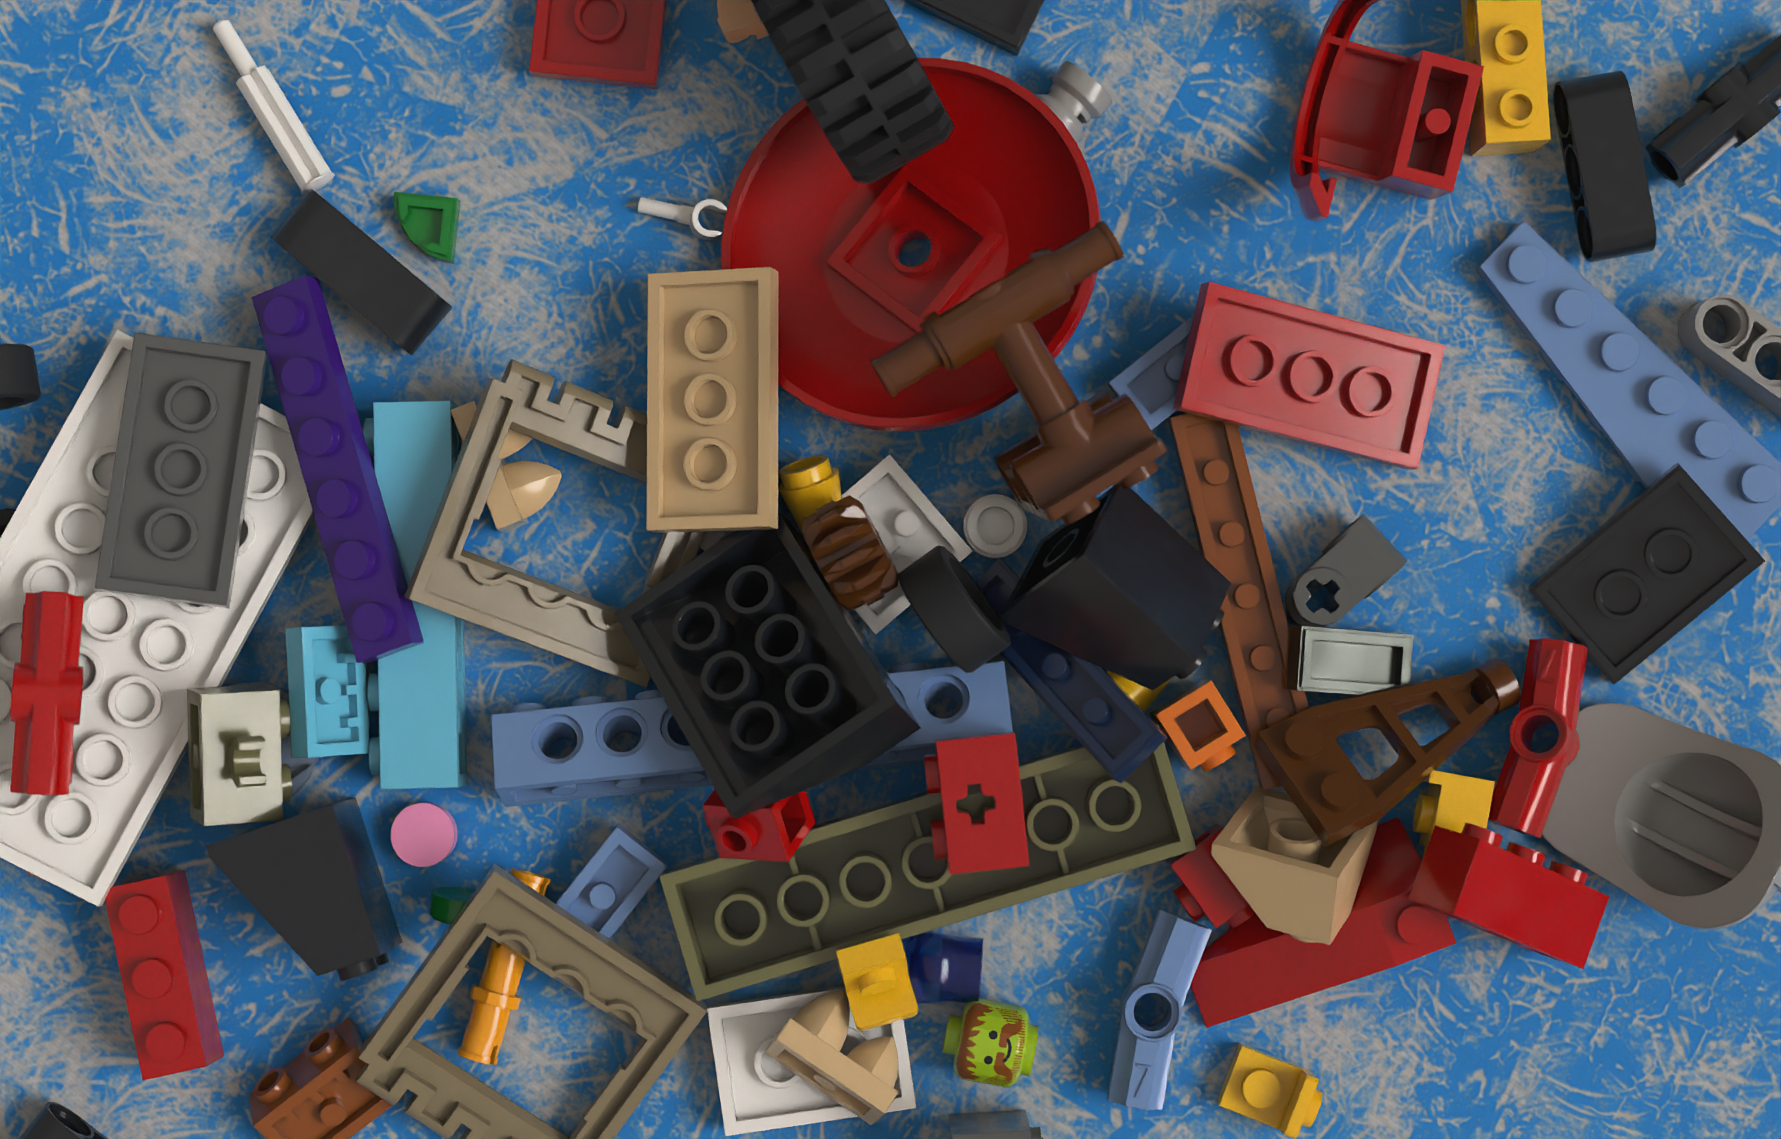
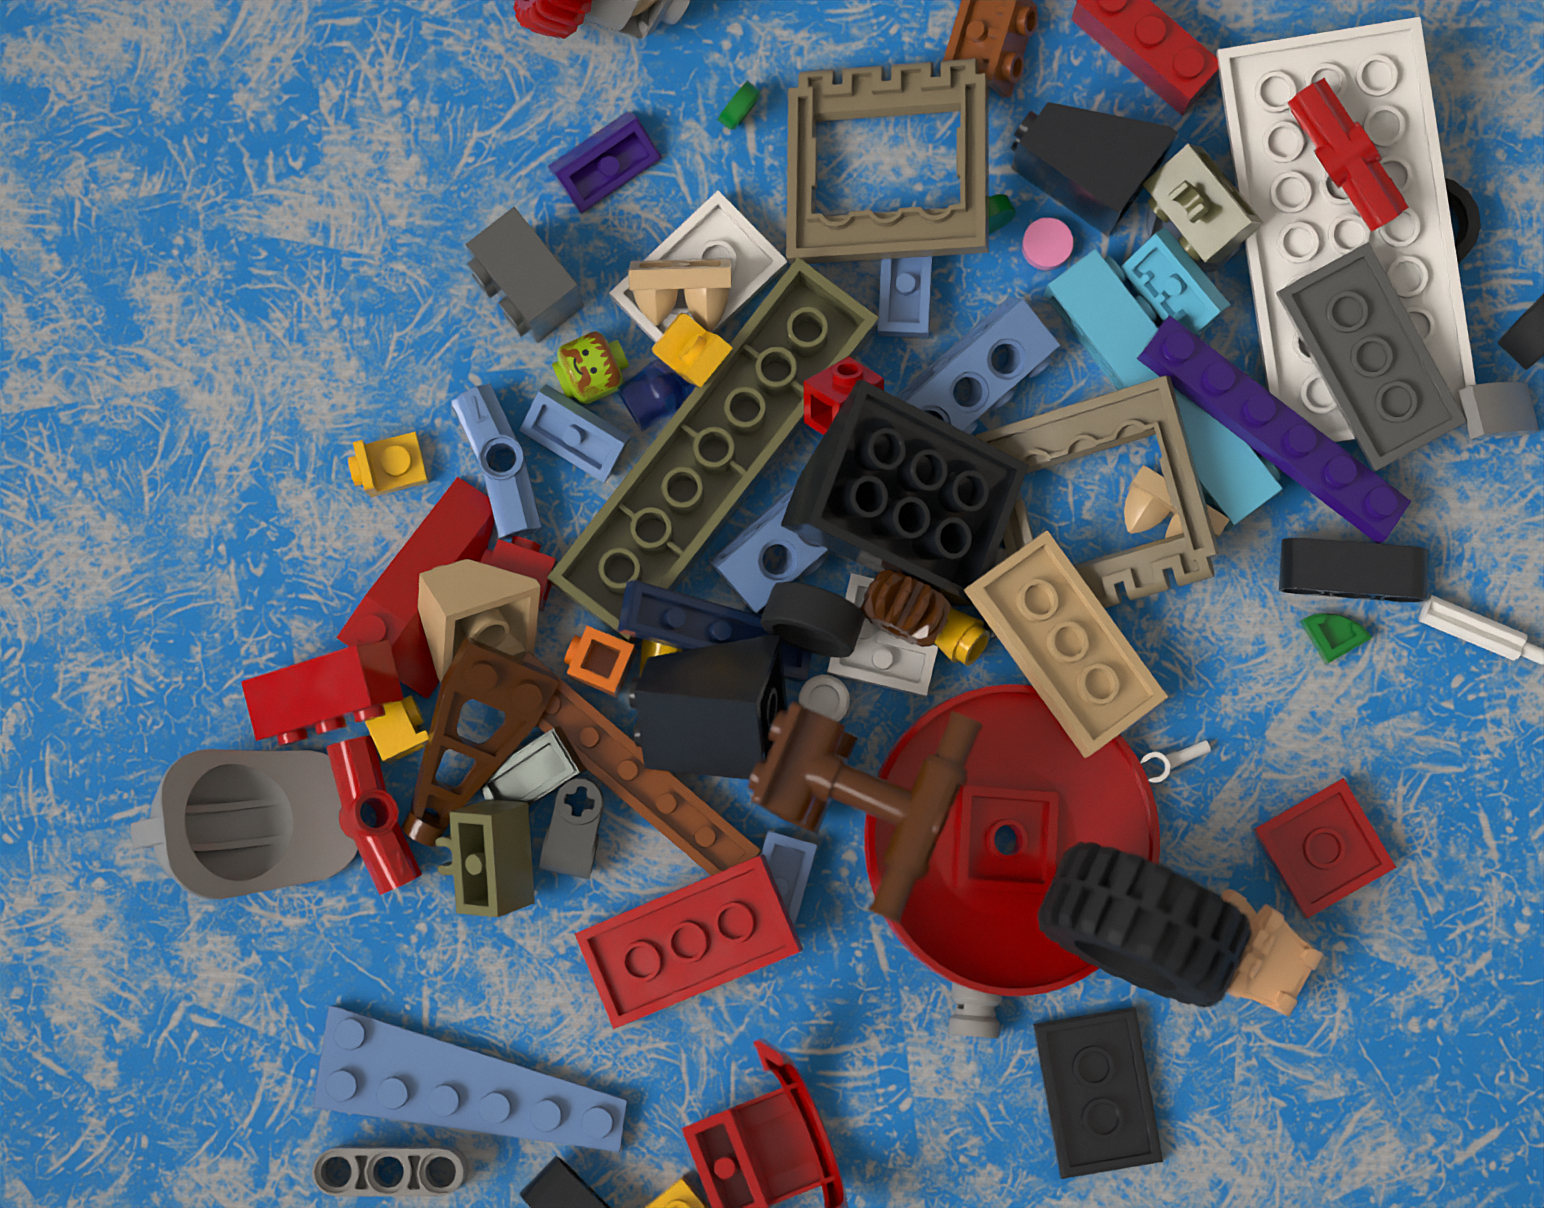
camera: 145 degrees right, 5 degrees down
(92, 325) = (1498, 410): none -> light grey slope
(496, 992) = (929, 180): light orange pin -> none
(1000, 837) = (681, 491): red brick -> none
(1055, 984) = (575, 433): none -> medium blue plate
(1453, 603) = (490, 858): none -> olive brick
(1646, 573) = (375, 972): black tile -> none

